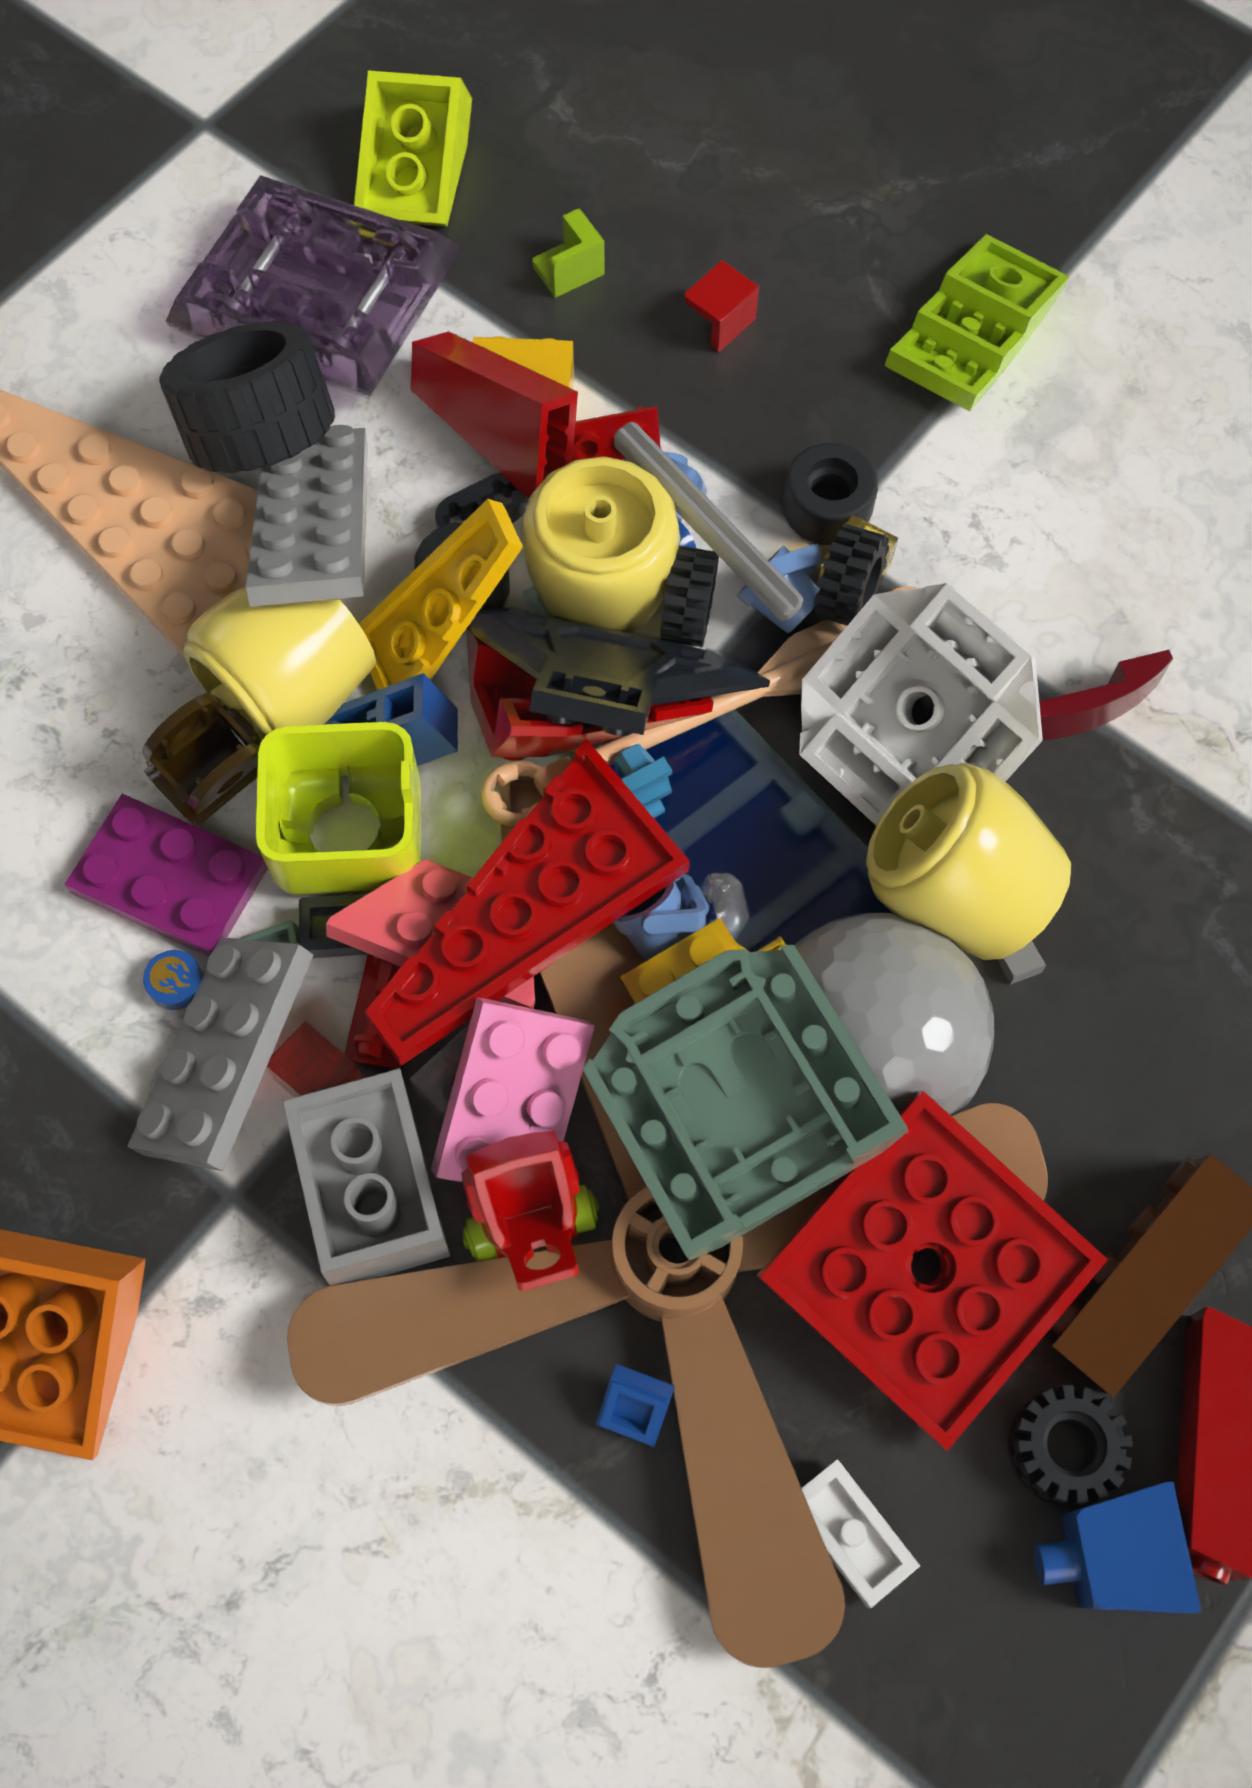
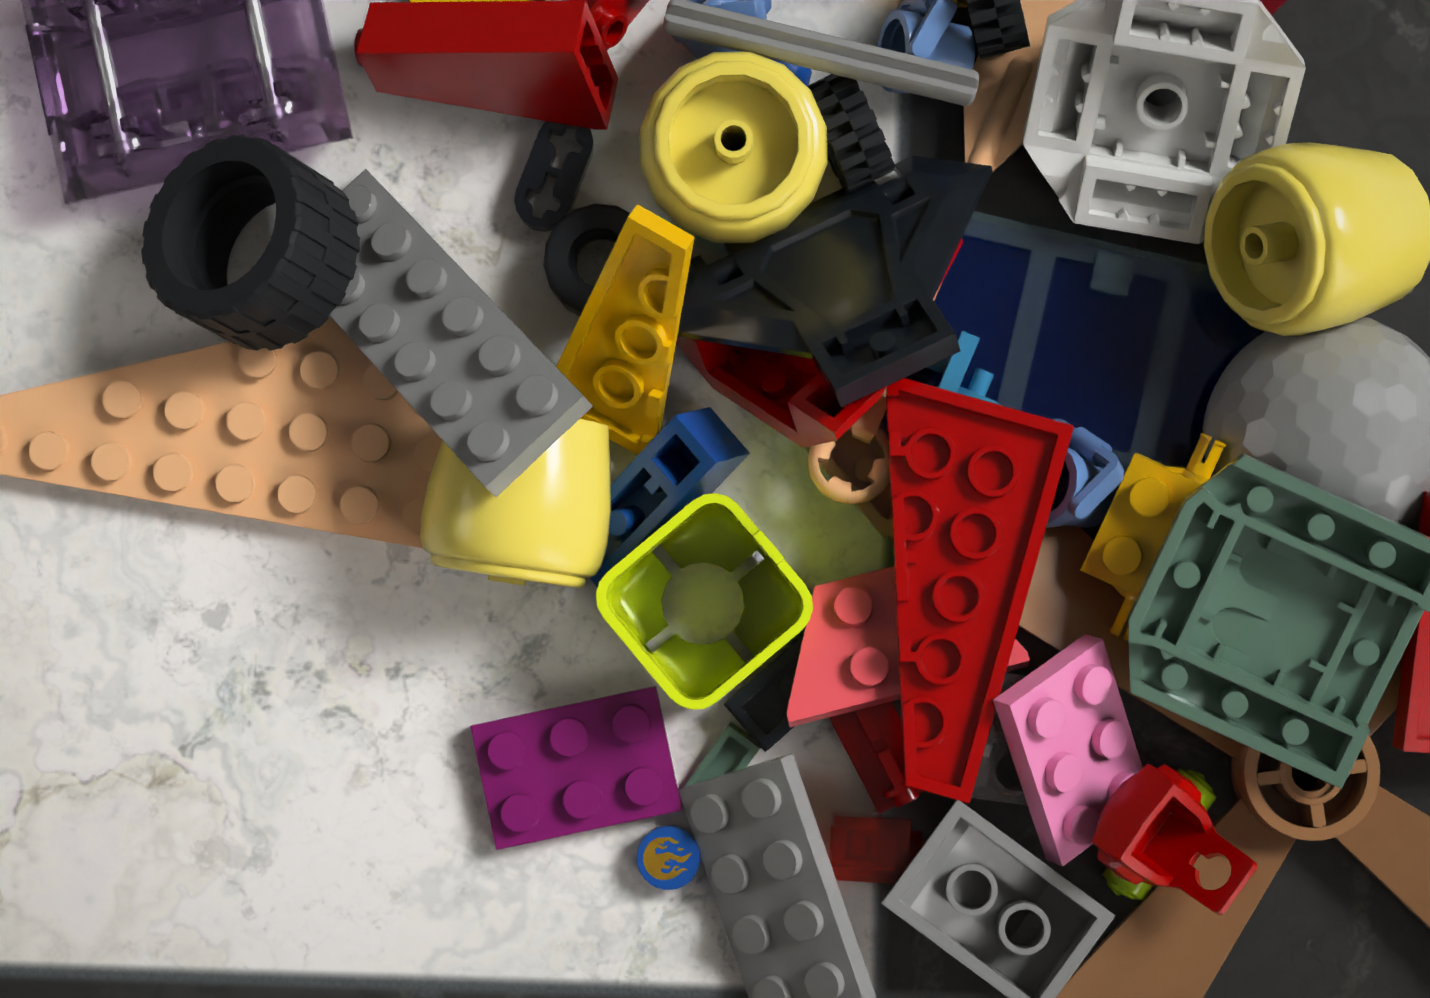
camera: 30 degrees left, 20 degrees up
(200, 759) = (540, 648): dark brown piece -> none
(635, 1405) = (1359, 917): blue tile -> none
(728, 900) = (1116, 421): clear arm -> none

